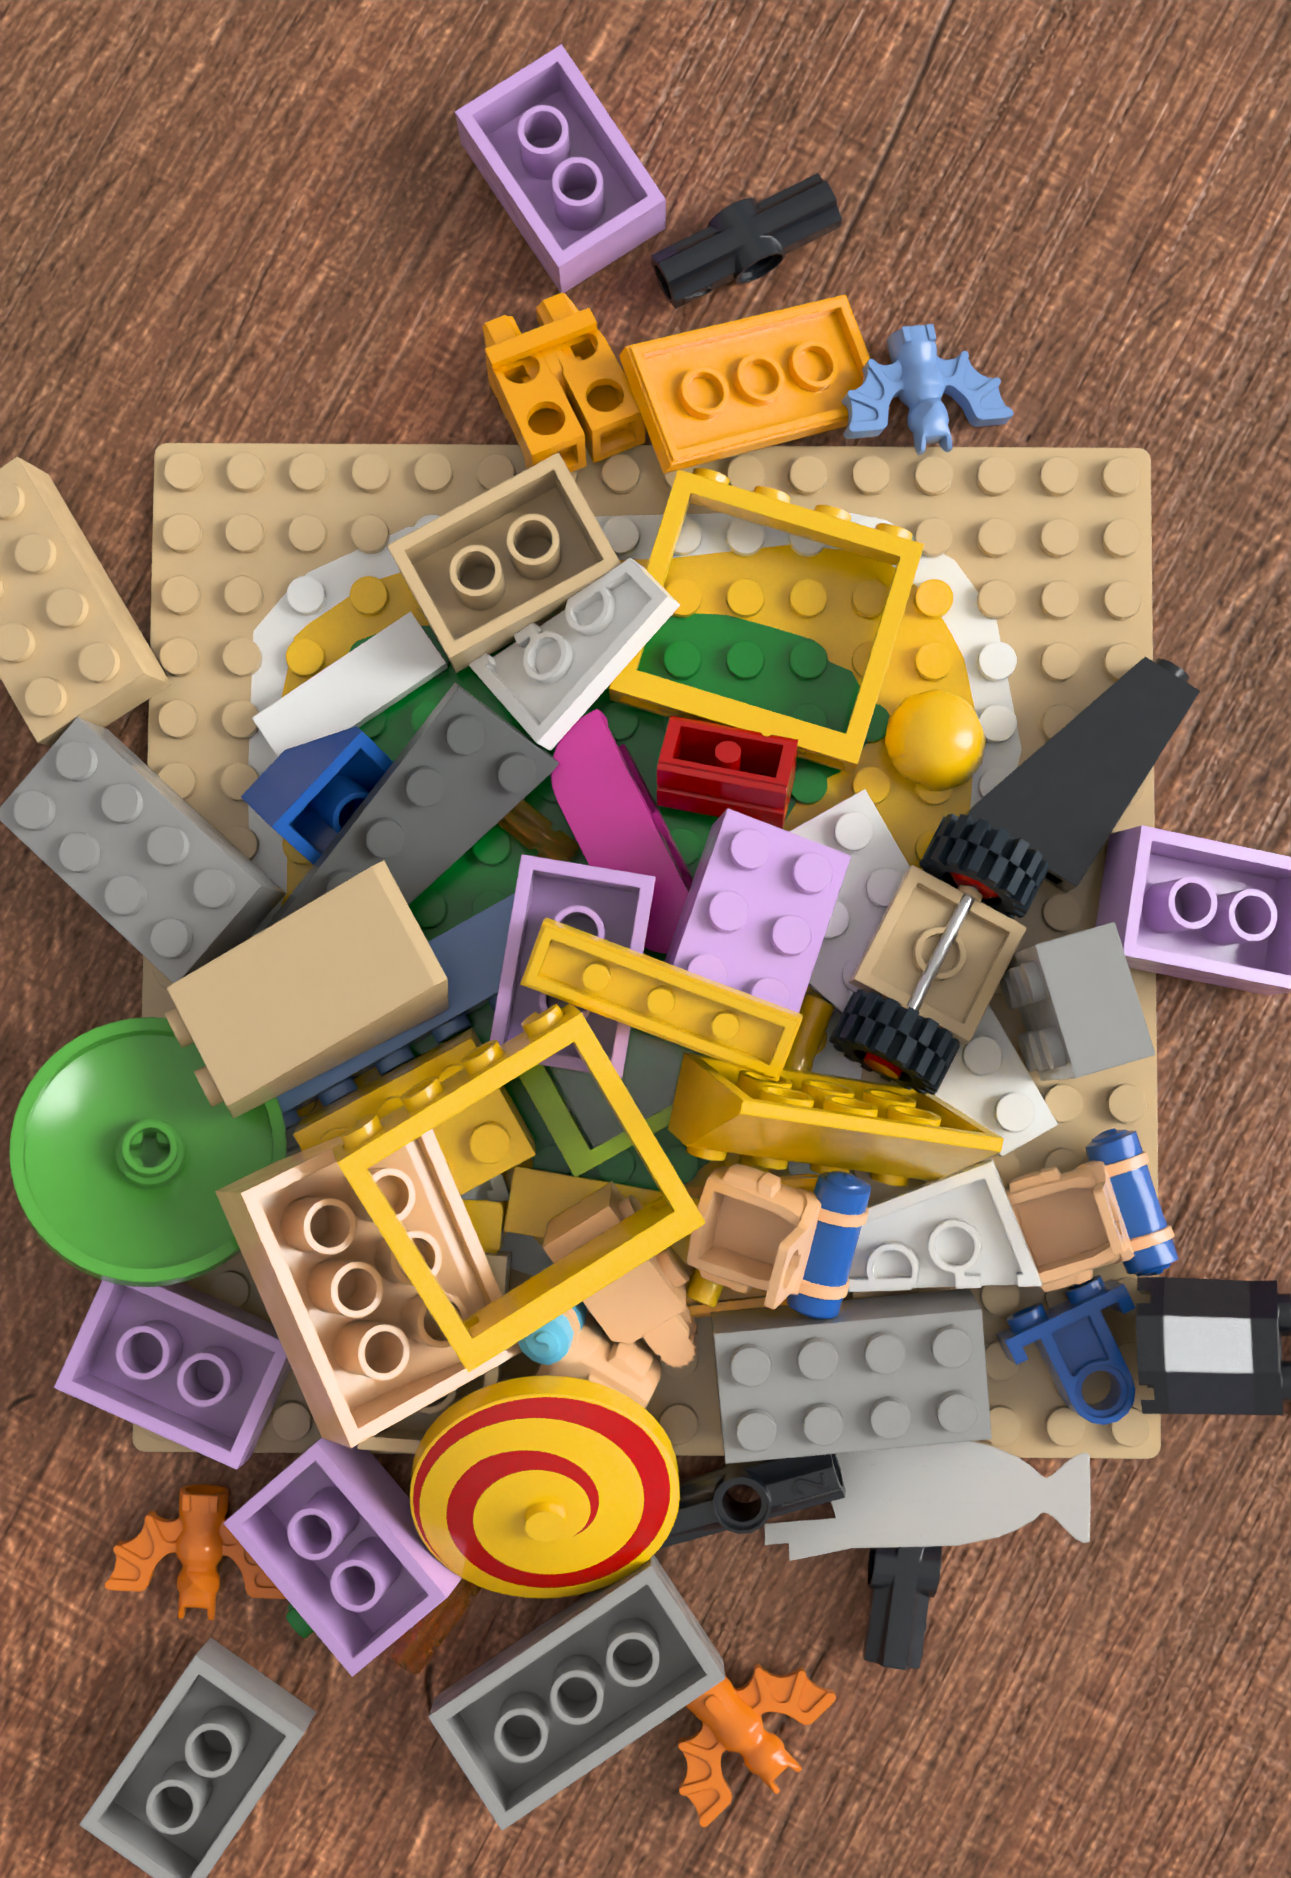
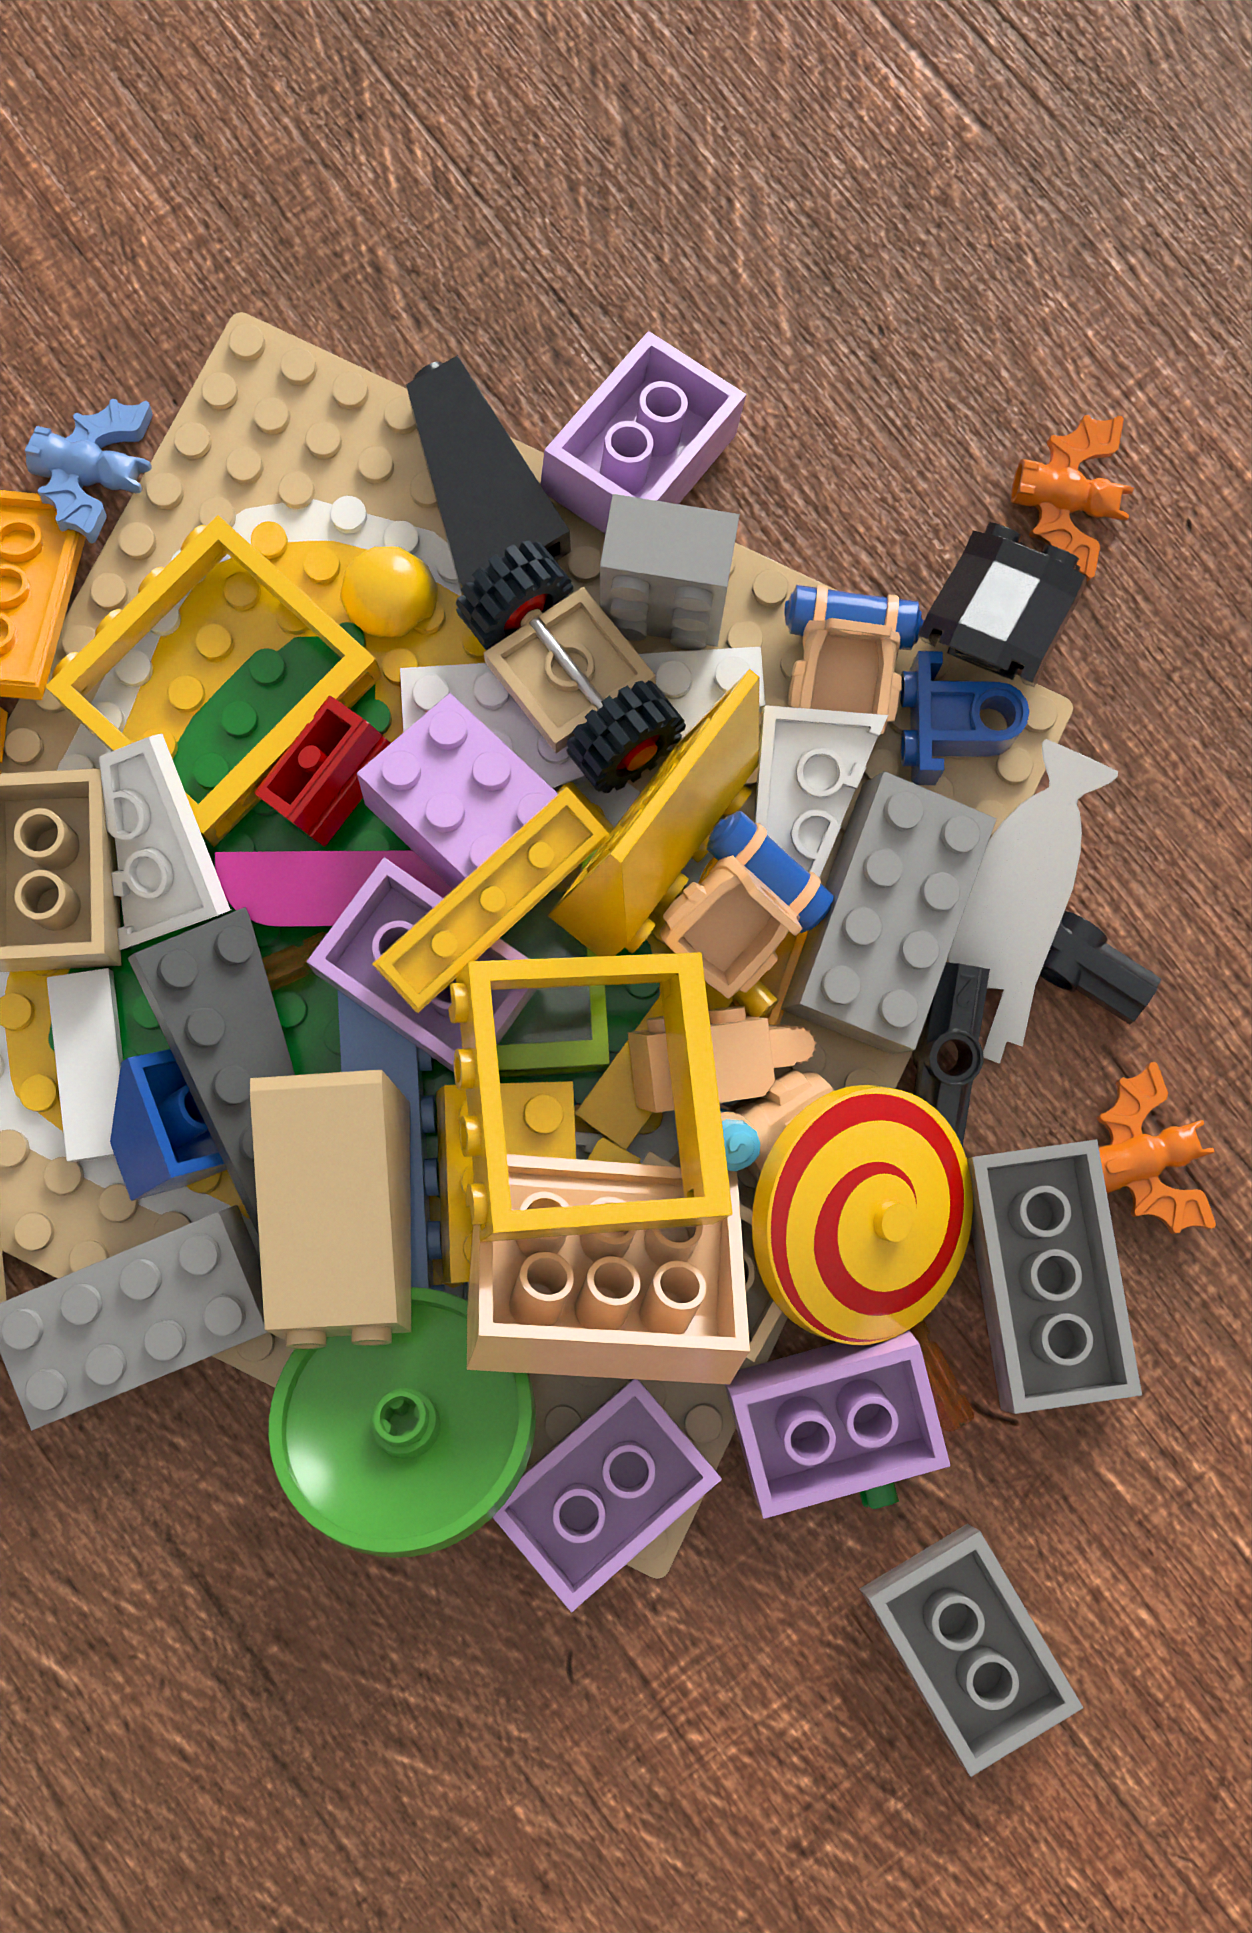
camera: 70 degrees left, 5 degrees down
(199, 1543) = (770, 1556): orange animal -> none

